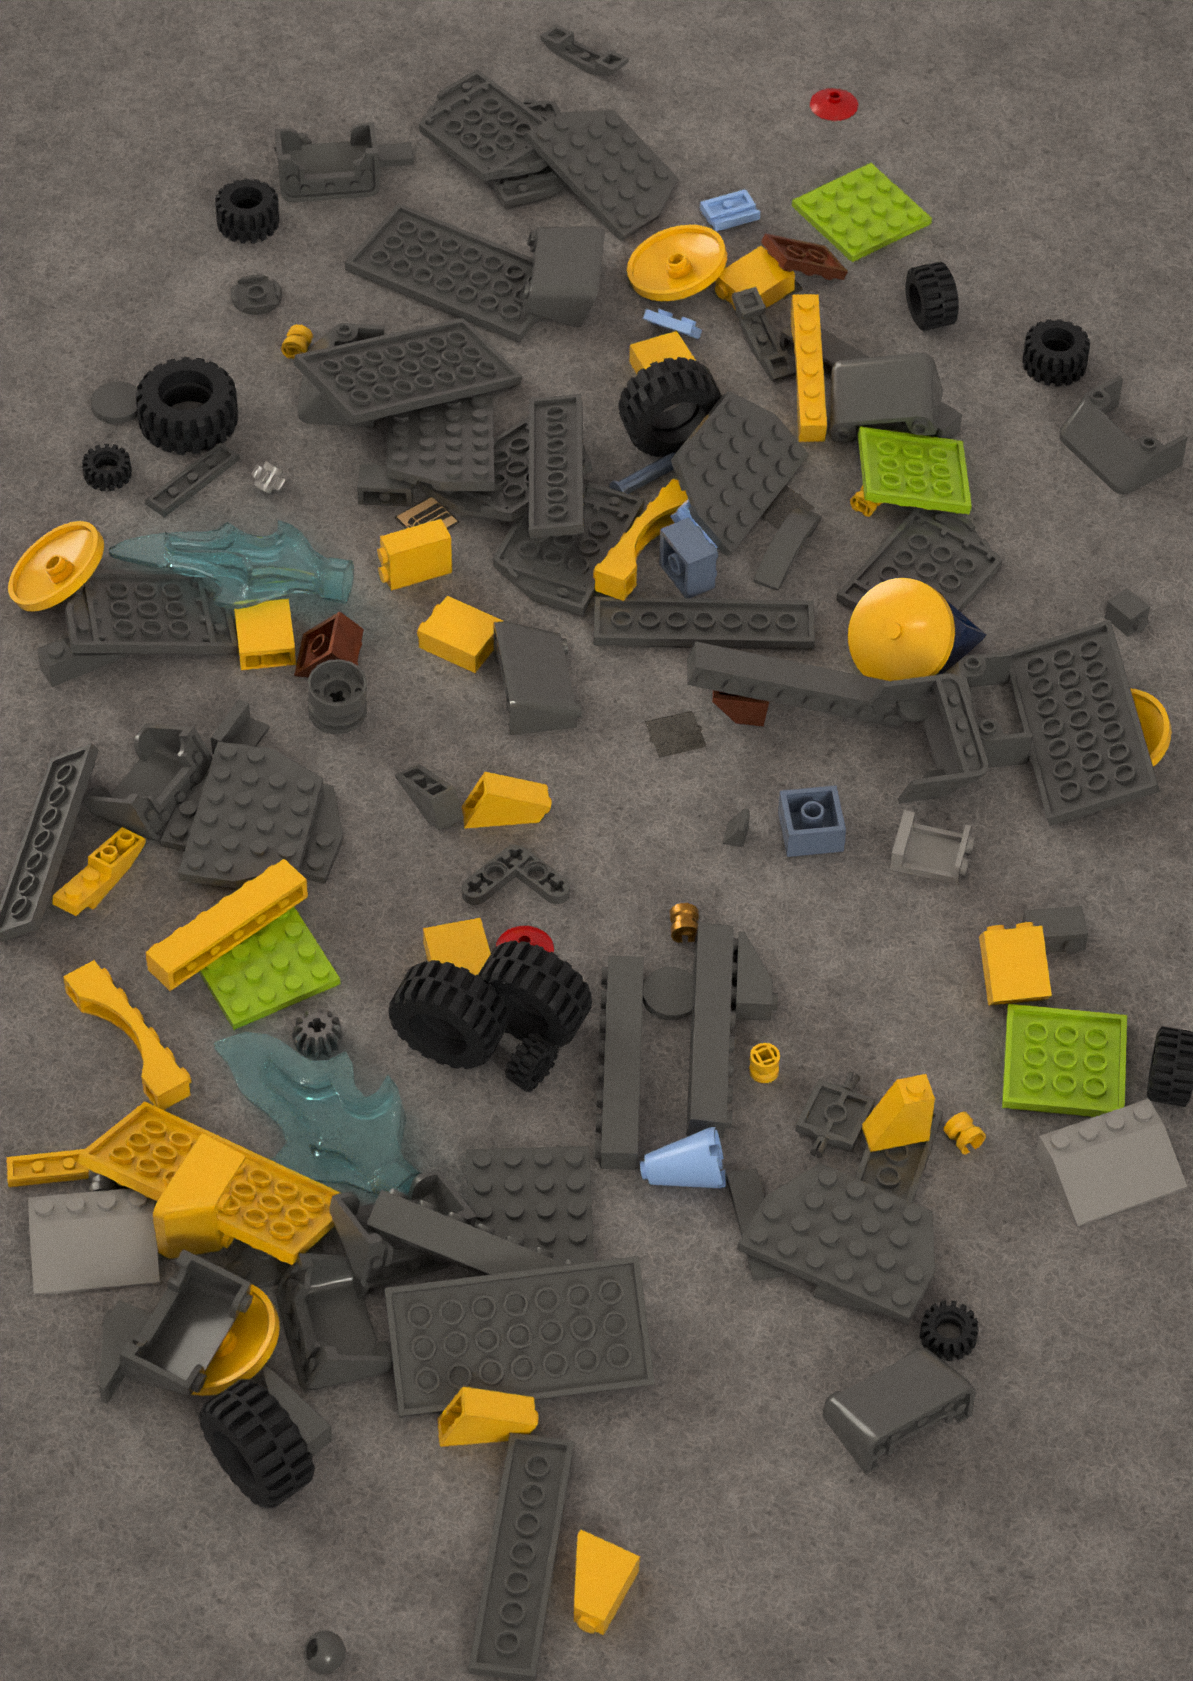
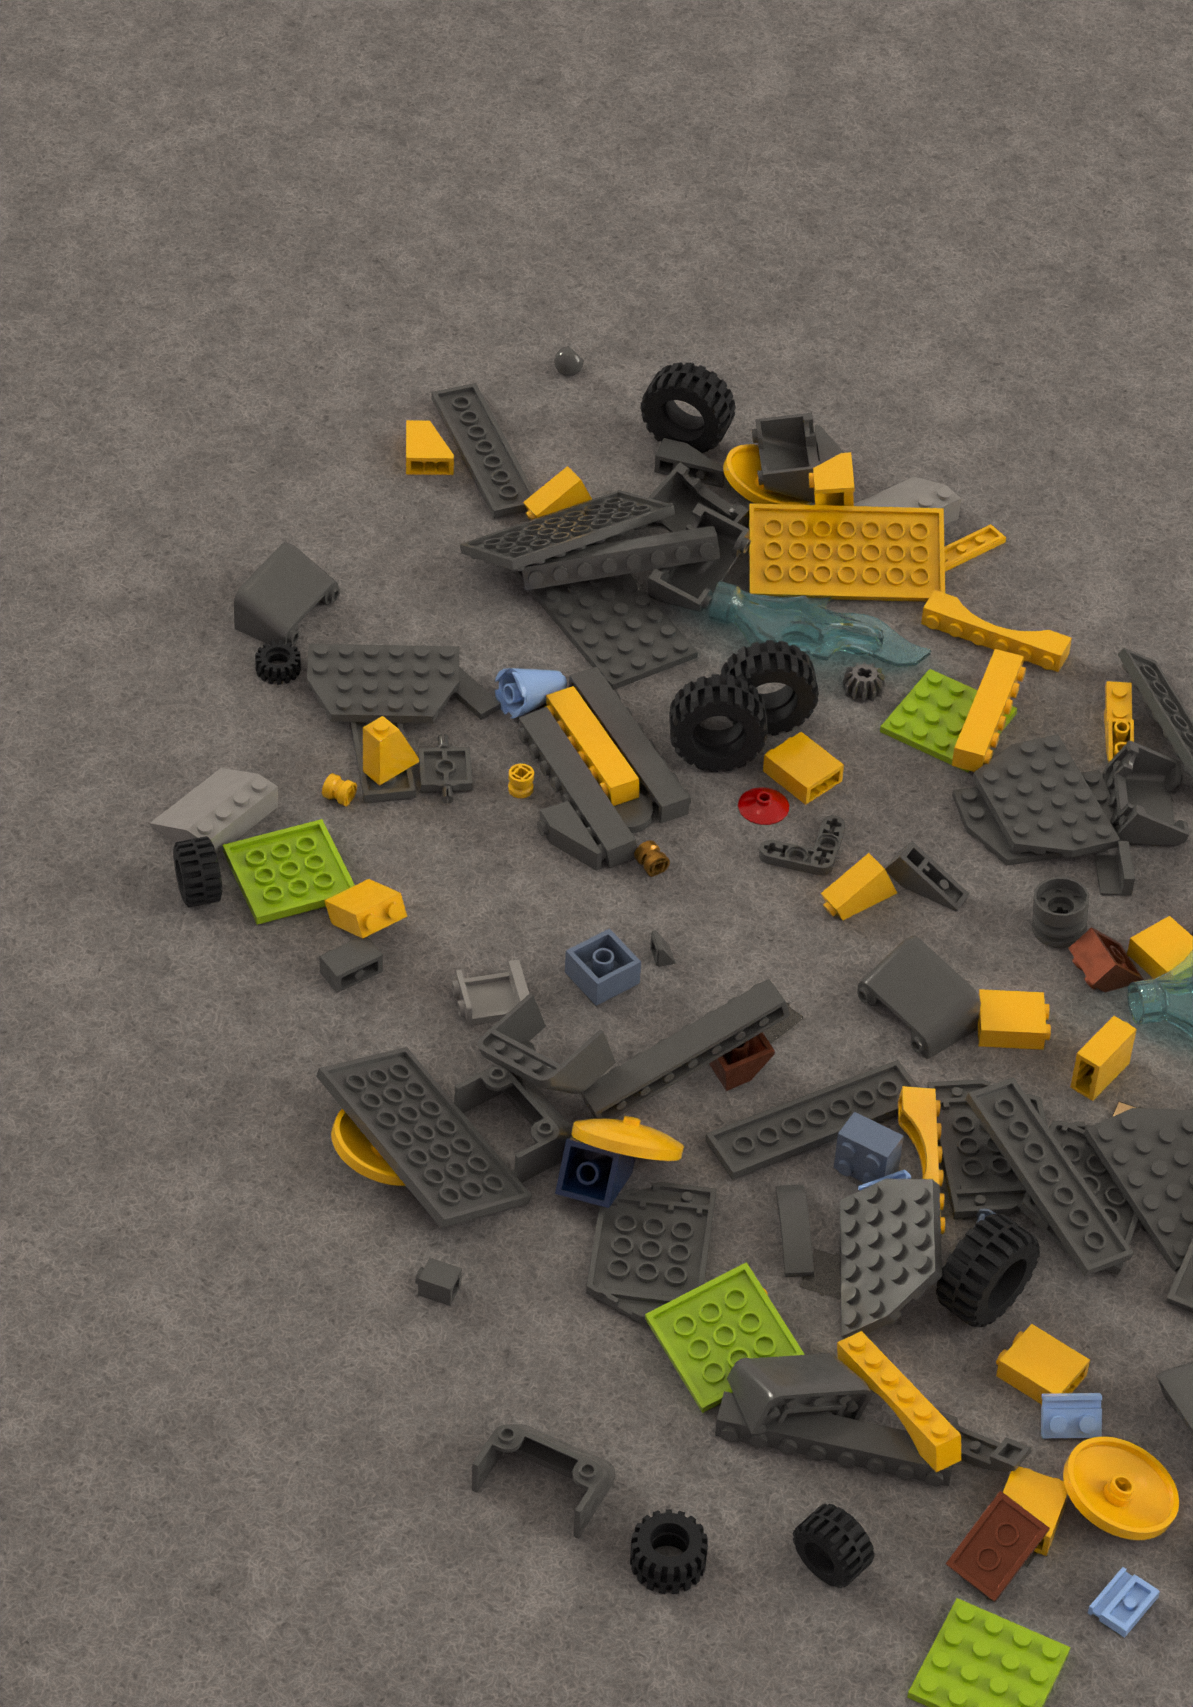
camera: 150 degrees right, 5 degrees down
(666, 1065) = (594, 745): none -> yellow brick

